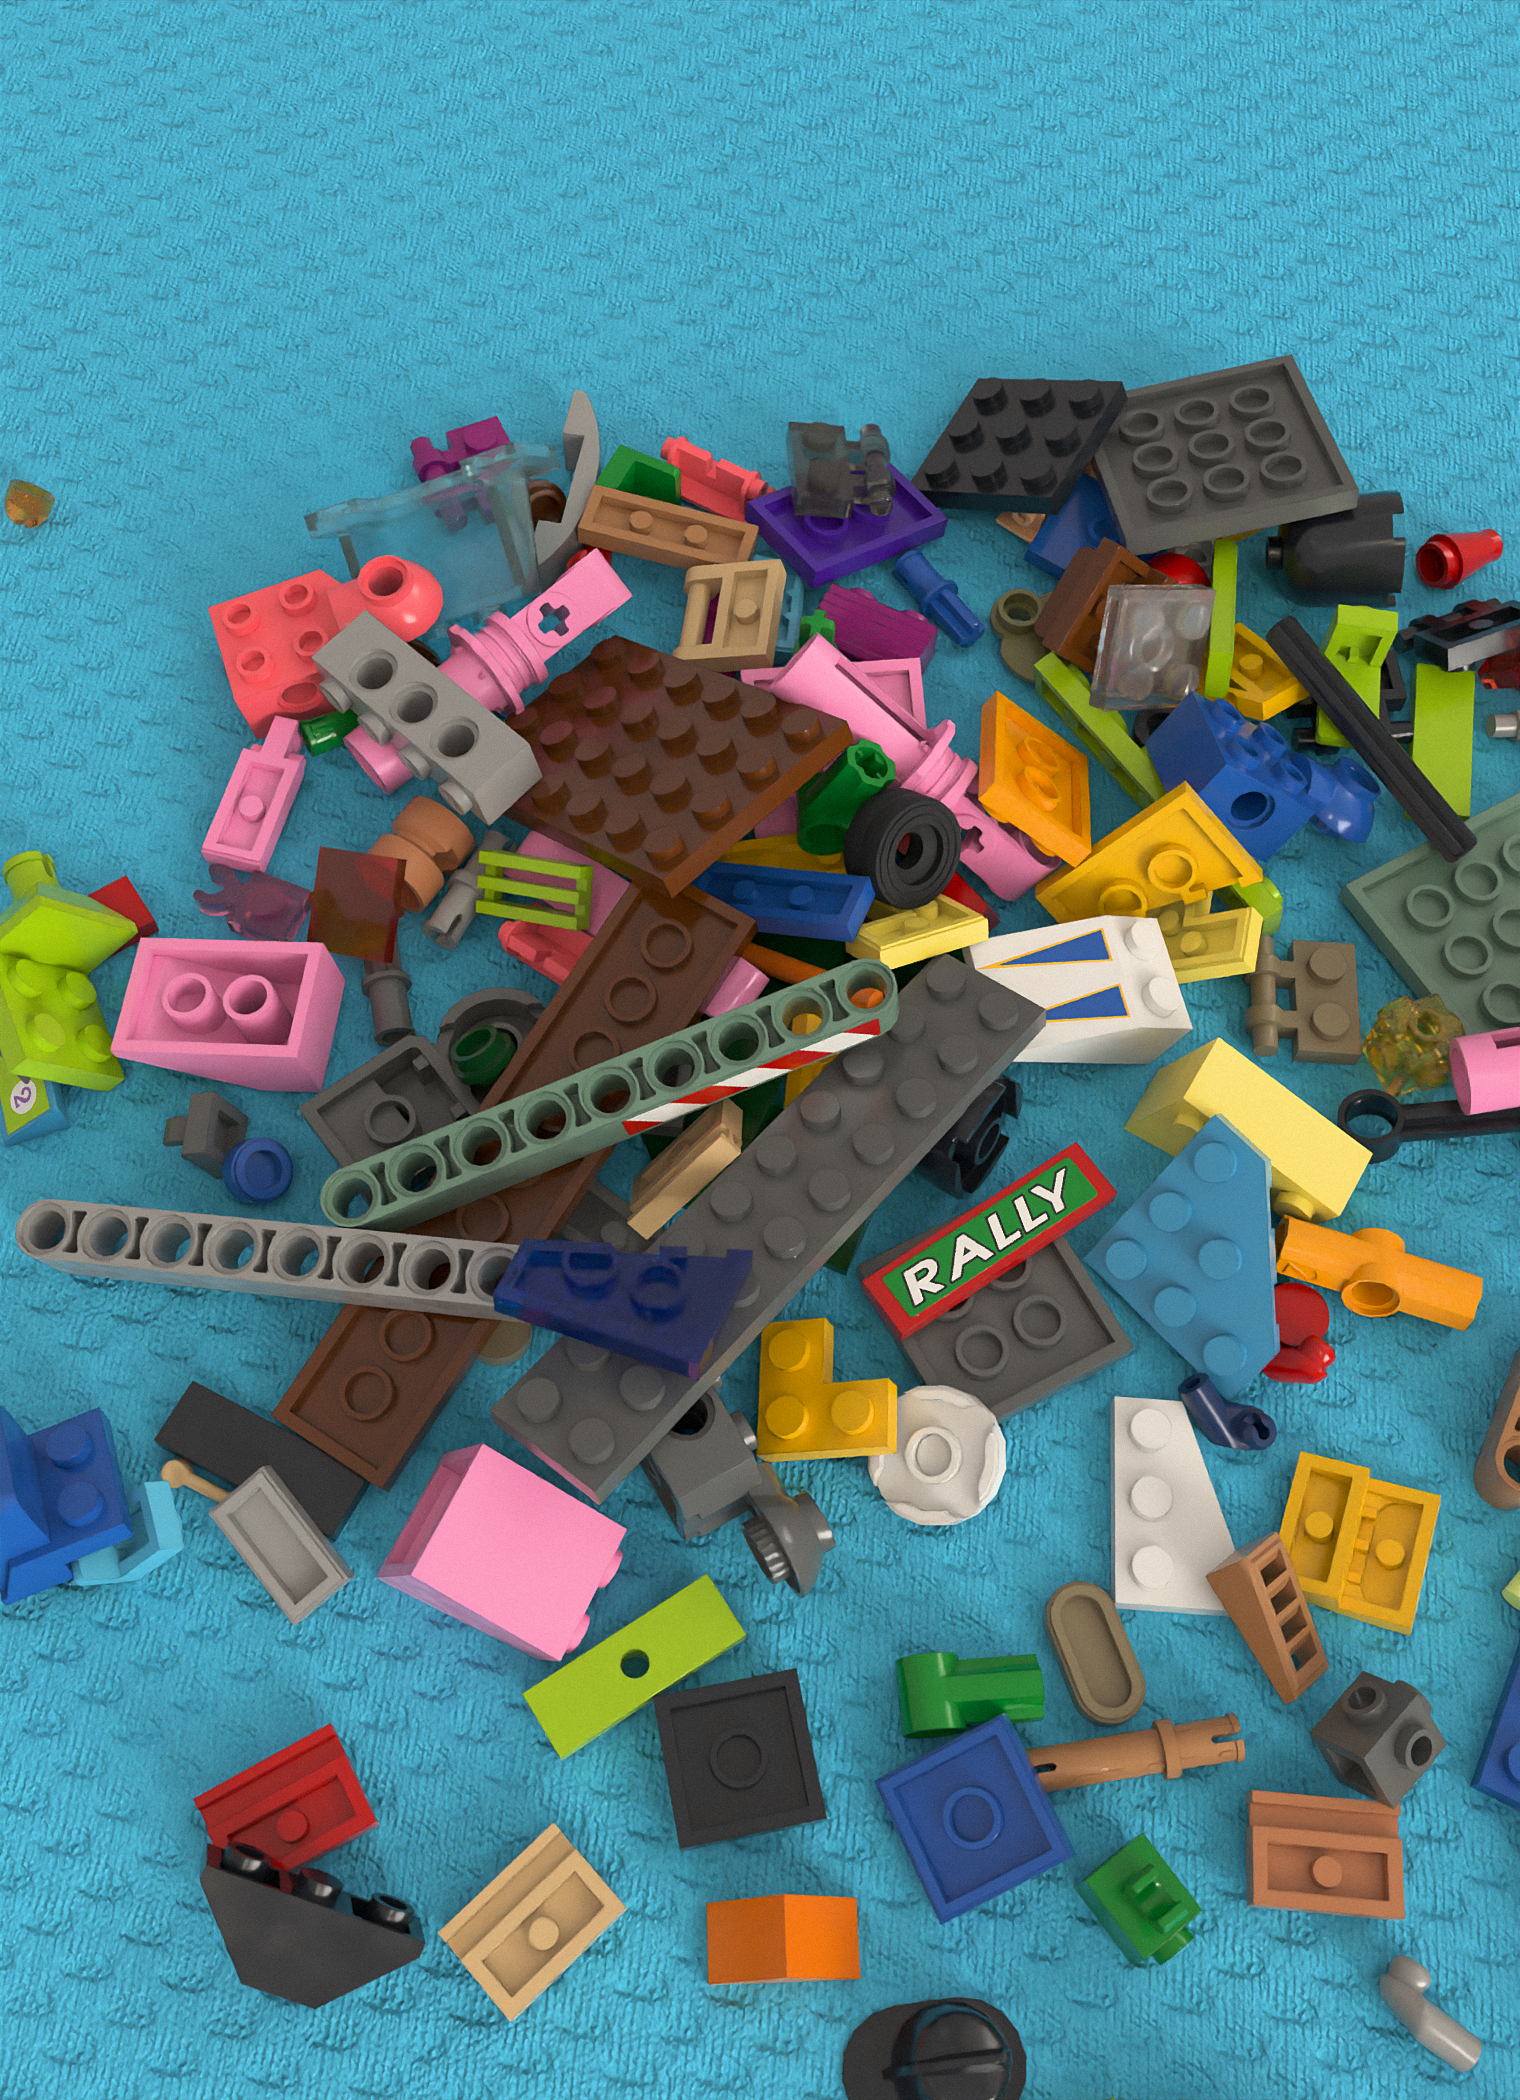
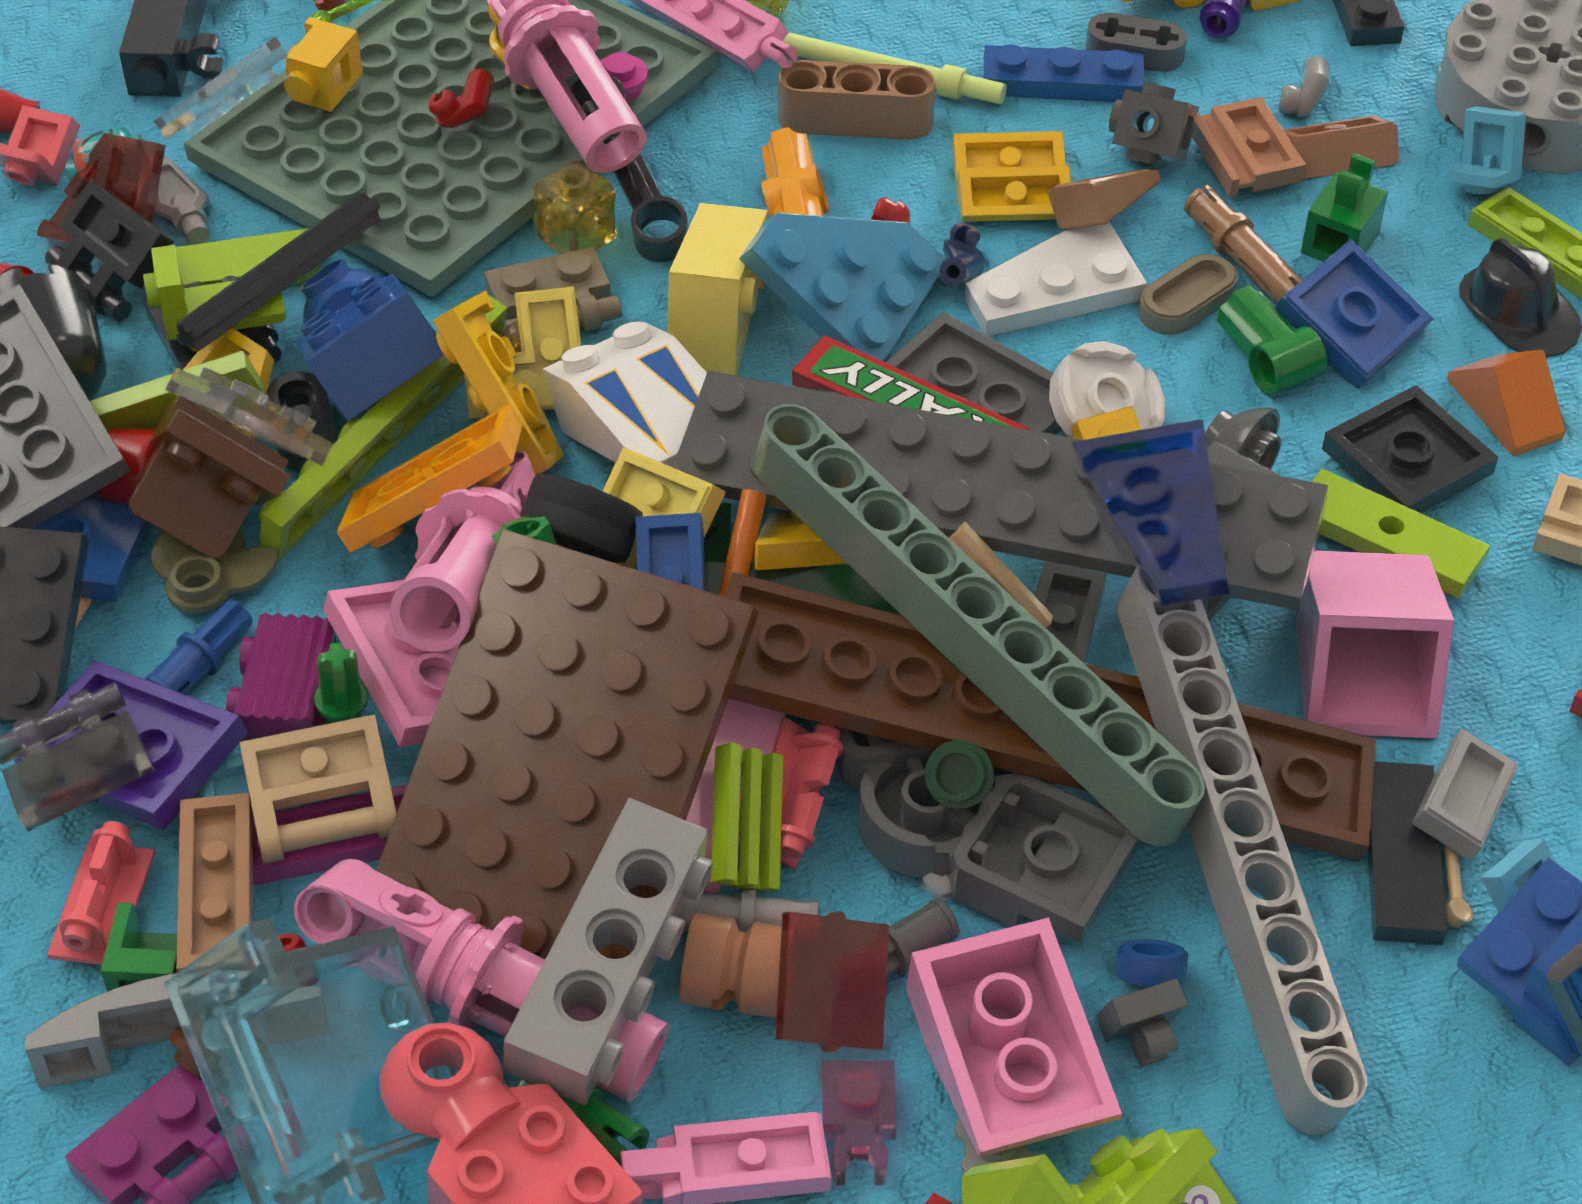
camera: 110 degrees left, 15 degrees down
(1305, 1997) = (1330, 145): none -> nougat slope

